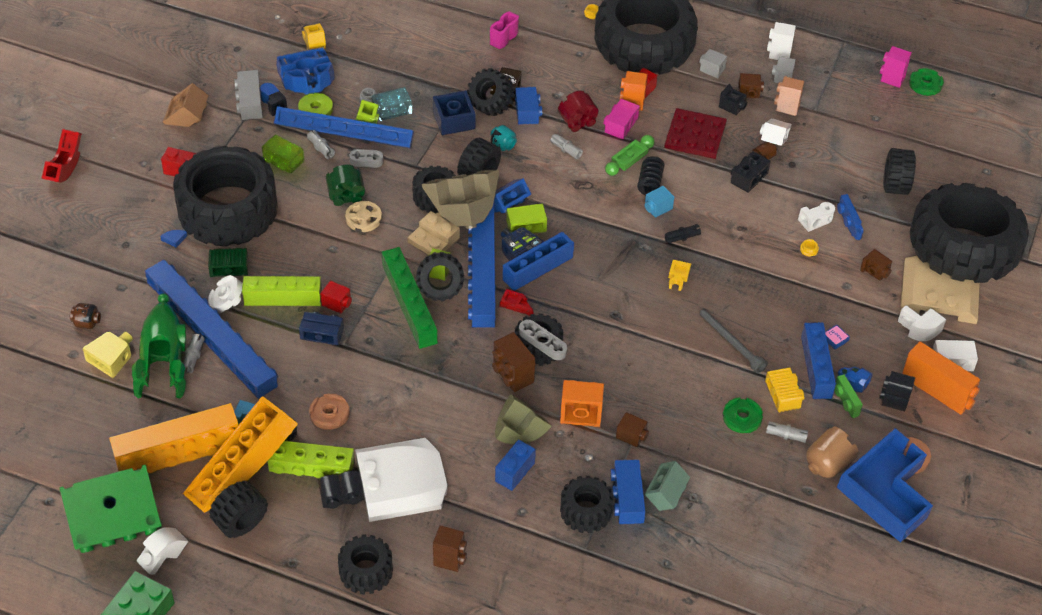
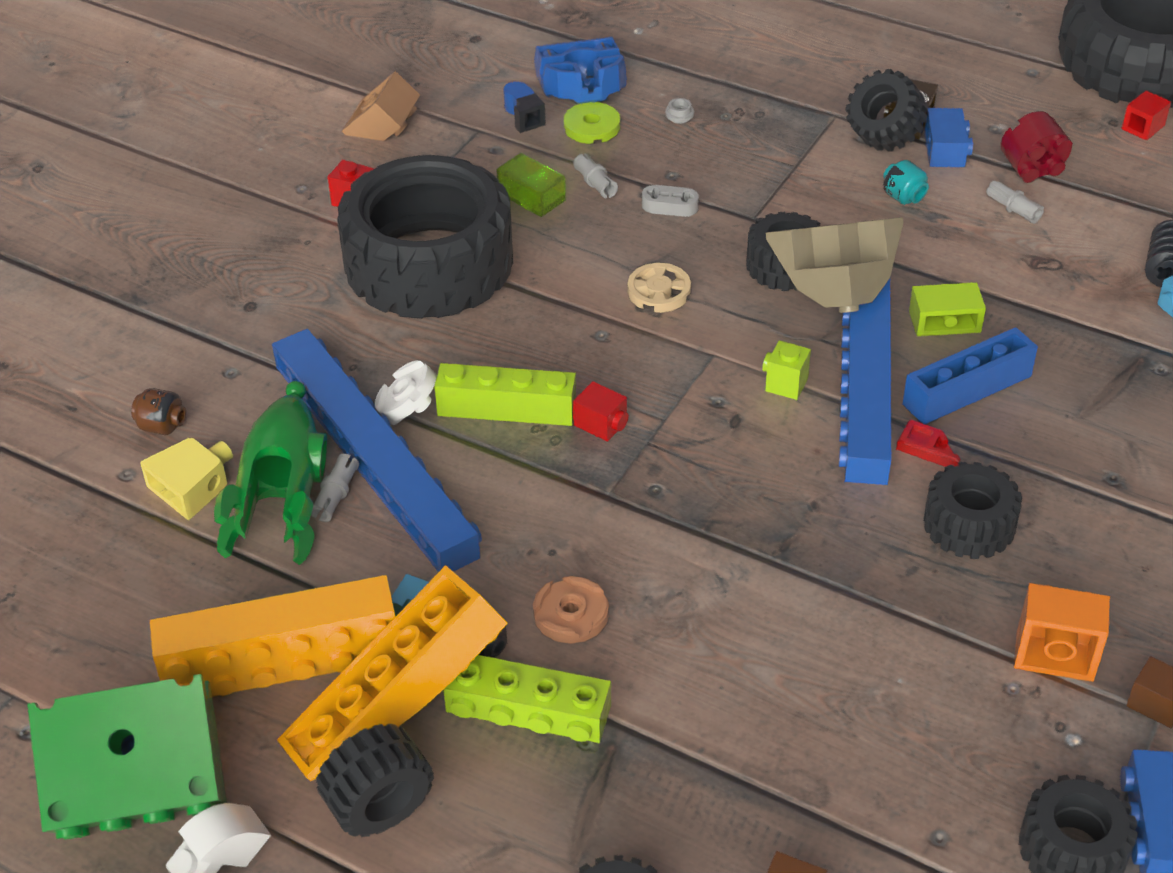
camera: 10 degrees right, 5 degrees down
(65, 159) = (175, 172): red arch -> none
(174, 237) = (332, 299): blue tile -> none
(228, 262) = (417, 340): dark green brick -> none
(248, 95) = (484, 99): light grey brick -> none
(314, 36) = (598, 21): yellow brick -> none
(321, 328) = (569, 461): dark blue brick -> none
(341, 489) = (580, 759): black brick -> none
(344, 127) = (638, 152): blue plate -> none
(345, 185) = (631, 233): dark green brick -> none
(367, 112) = (676, 134): lime brick -> none
(393, 103) = (718, 123): clear light blue brick -> none
(401, 478) = (701, 750): white wedge -> none
(409, 298) = (734, 423): green brick -> none
(432, 291) = (822, 386): black tyre -> none
(434, 233) = (782, 317): tan plate -> none
(454, 112) = (822, 139): dark blue brick -> none
(479, 156) = (865, 198): black tyre -> none
(504, 30) = (908, 29): dark pink brick -> none
(510, 194) = (920, 266): blue brick -> none
(513, 362) = (926, 545): reddish brown brick -> none
(515, 465) = (928, 741): blue brick -> none
(518, 242) = (931, 342): torso -> none
(519, 422) = (935, 661): olive brick -> none
(546, 347) = (1005, 523): light grey beam -> none
(590, 11) = (1051, 13): yellow plate -> none
(621, 118) = (1110, 165): dark pink brick -> none
(629, 155) = (1127, 220): bright green plate -> none
(634, 88) = (1132, 122): orange brick -> none

